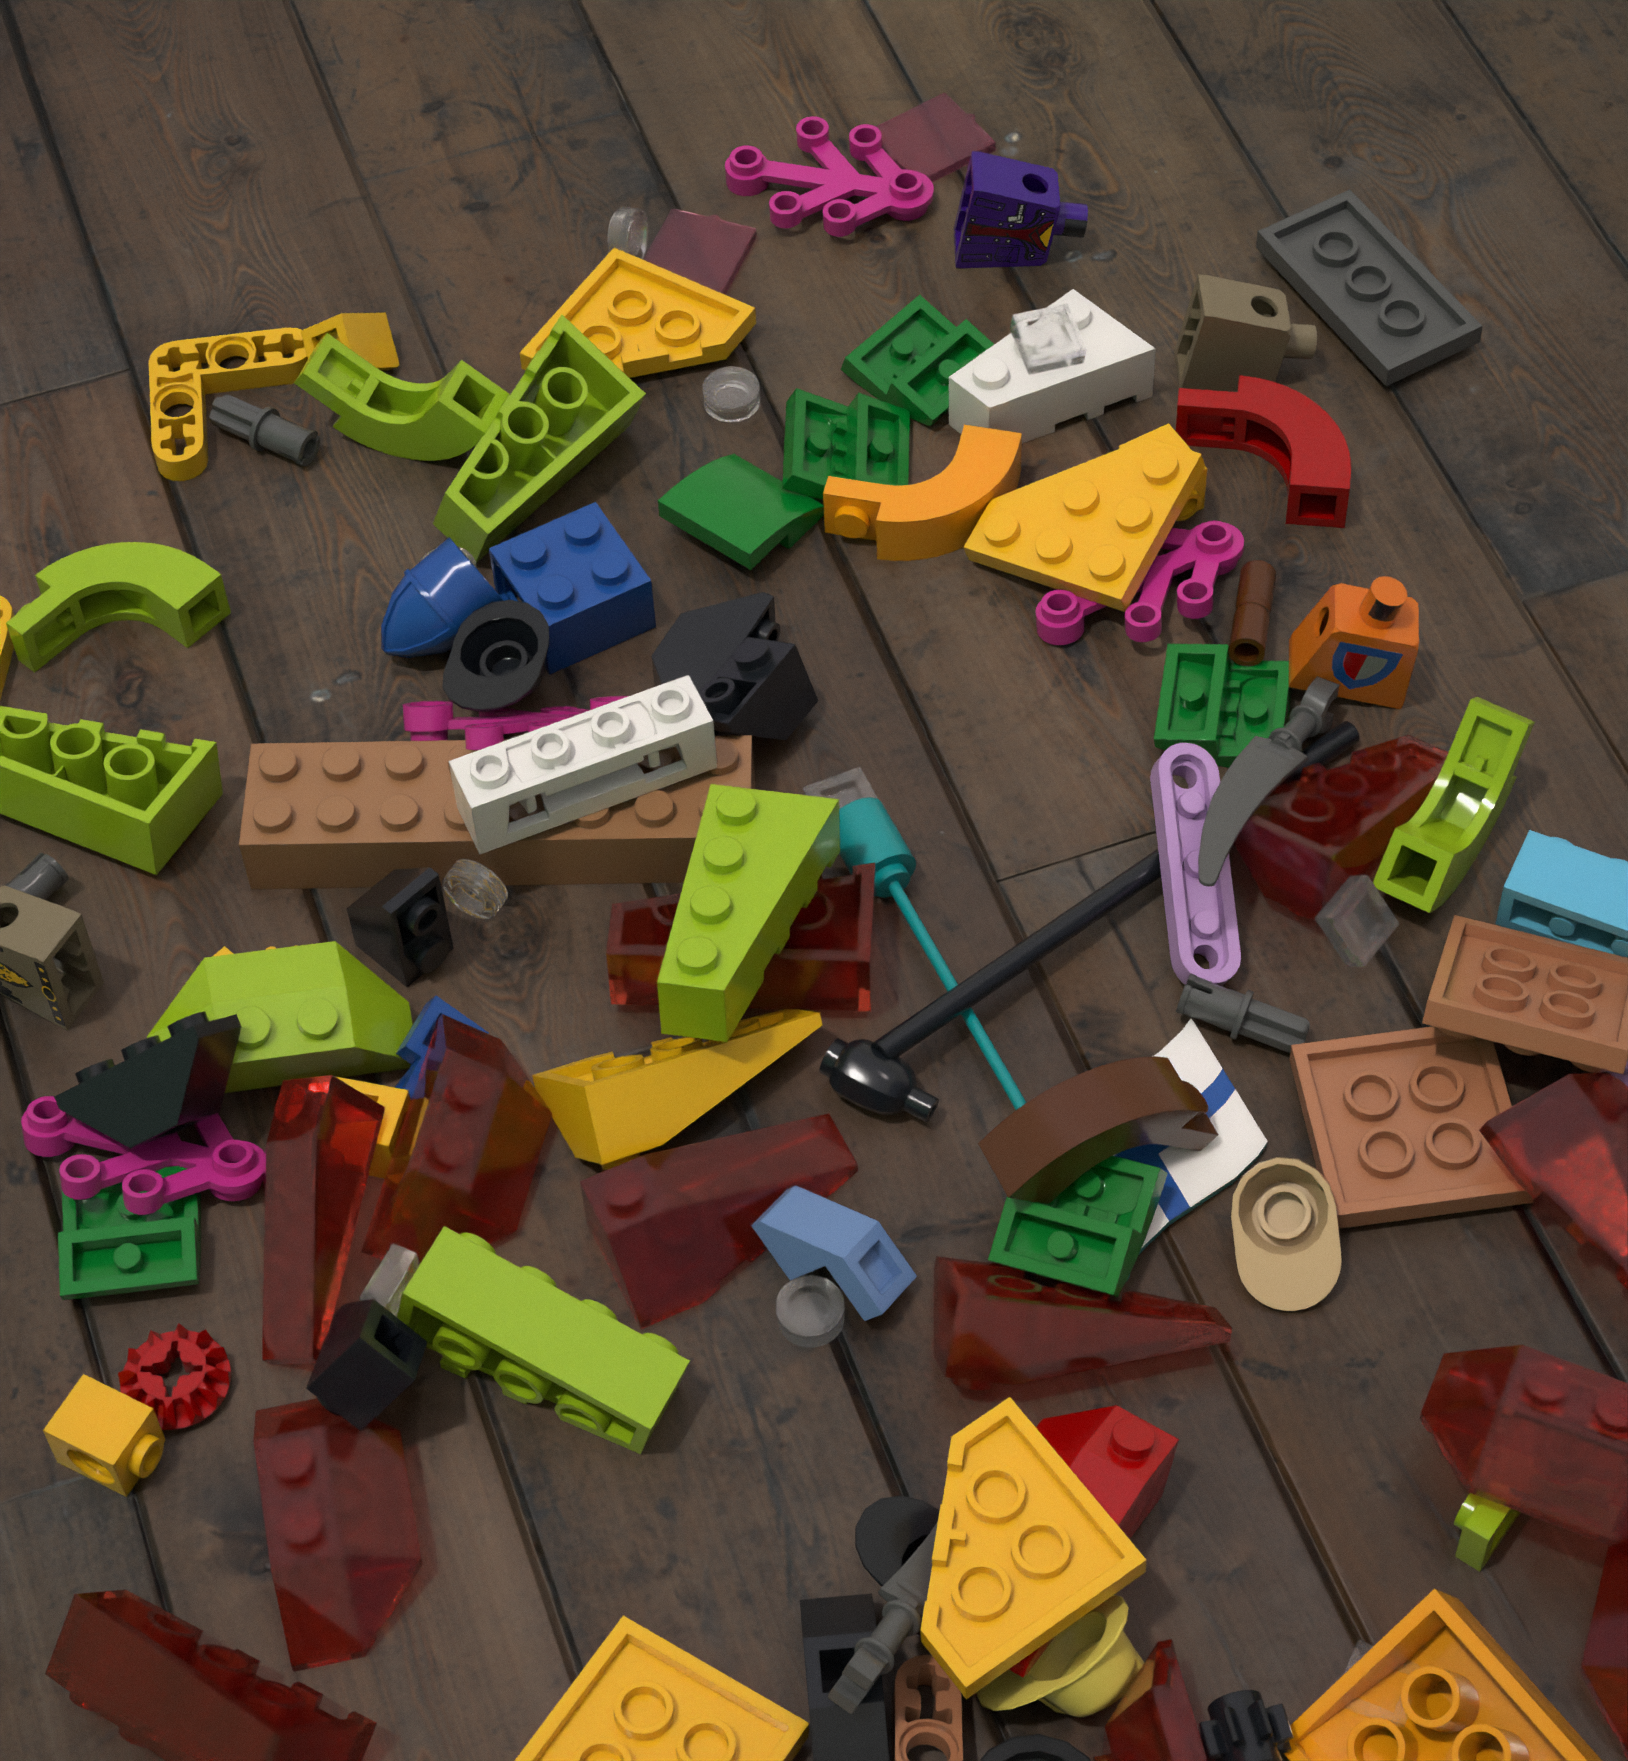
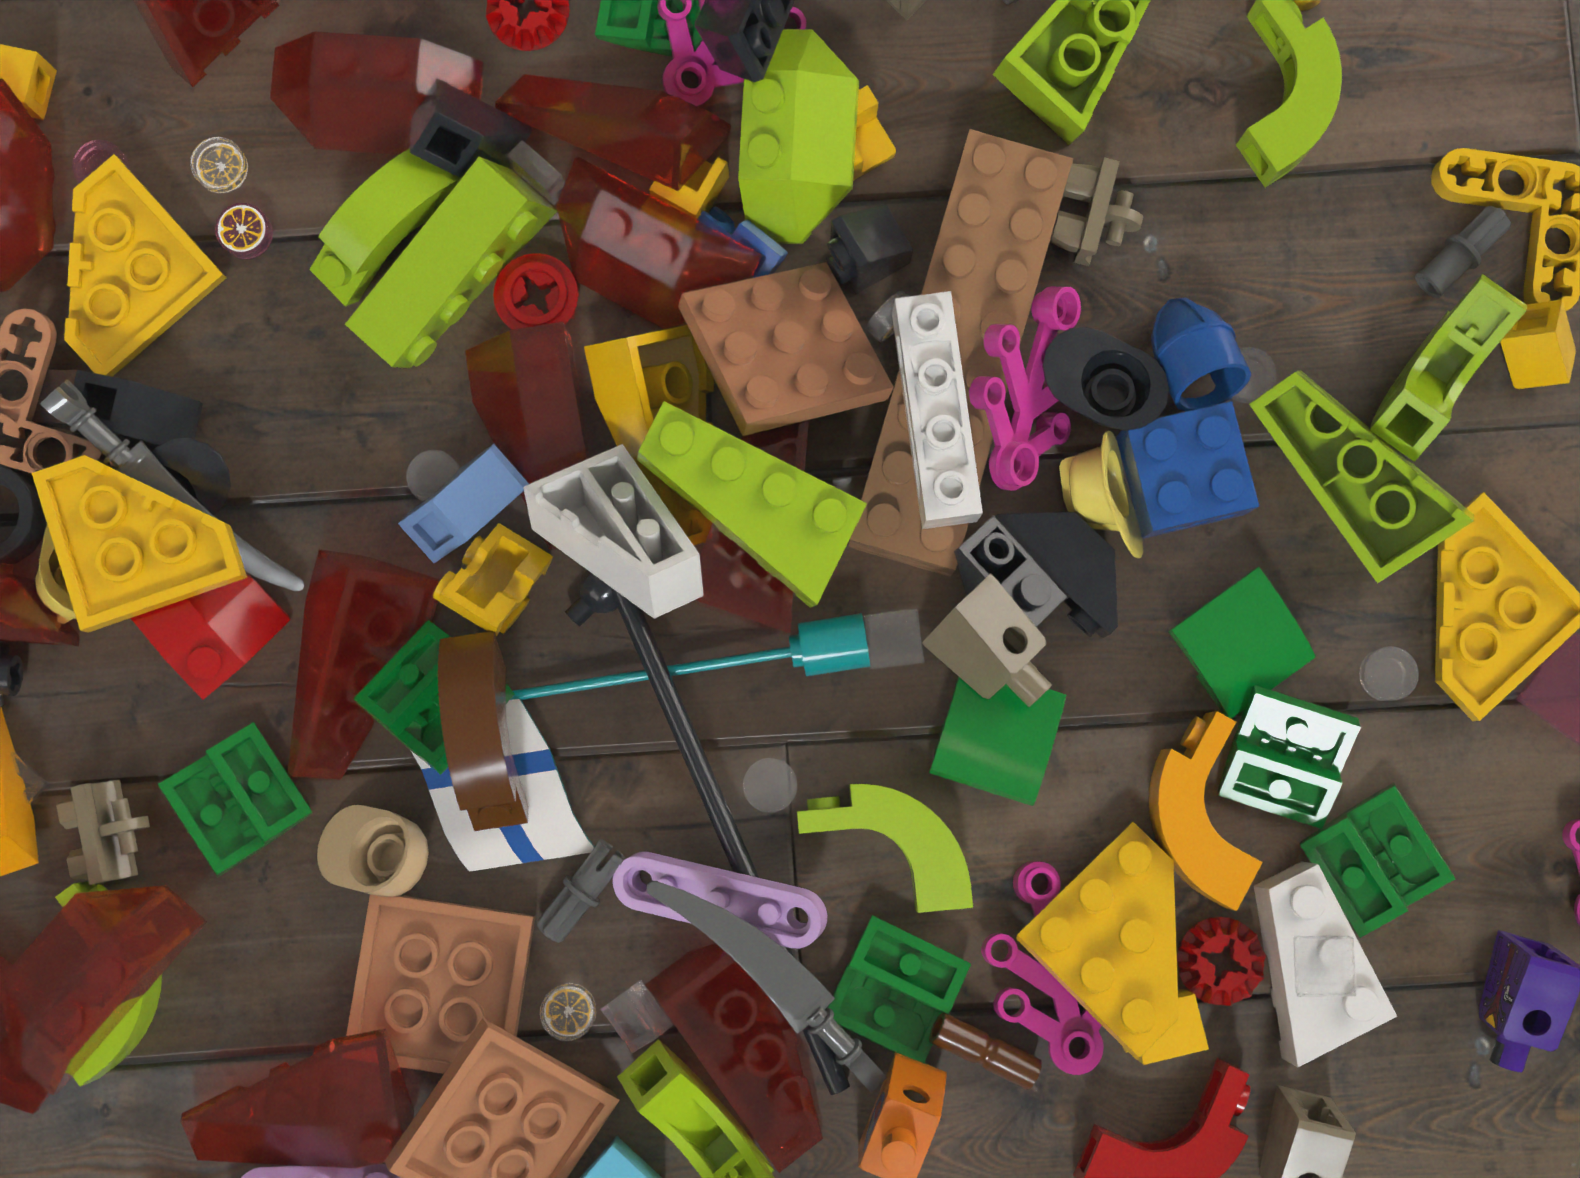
camera: 105 degrees right, 30 degrees up
(299, 722) = (1083, 233): none -> dark tan hips
(471, 1686) = (219, 165): none -> clear tile
(509, 1423) = (376, 221): none -> lime arch
(546, 954) = (785, 348): none -> nougat plate
(554, 1233) = (545, 273): none -> red gear
(554, 1625) = (244, 230): none -> clear pink tile
(617, 652) = (1098, 494): none -> light yellow piece
(817, 1036) = (618, 530): none -> white wedge
(819, 693) = (991, 644): none -> dark tan torso
(914, 685) = (998, 741): none -> green slope
(917, 1192) = (495, 580): none -> yellow cylinder
(1050, 877) = (770, 785): none -> clear tile
(1053, 447) = (1198, 973): none -> red gear
(1059, 711) = (932, 852): none -> lime arch
(1287, 1412) = (235, 799): none -> green slope
(1382, 999) = (568, 1011): none -> clear tile
(1420, 1529) = (104, 832): none -> dark tan hips

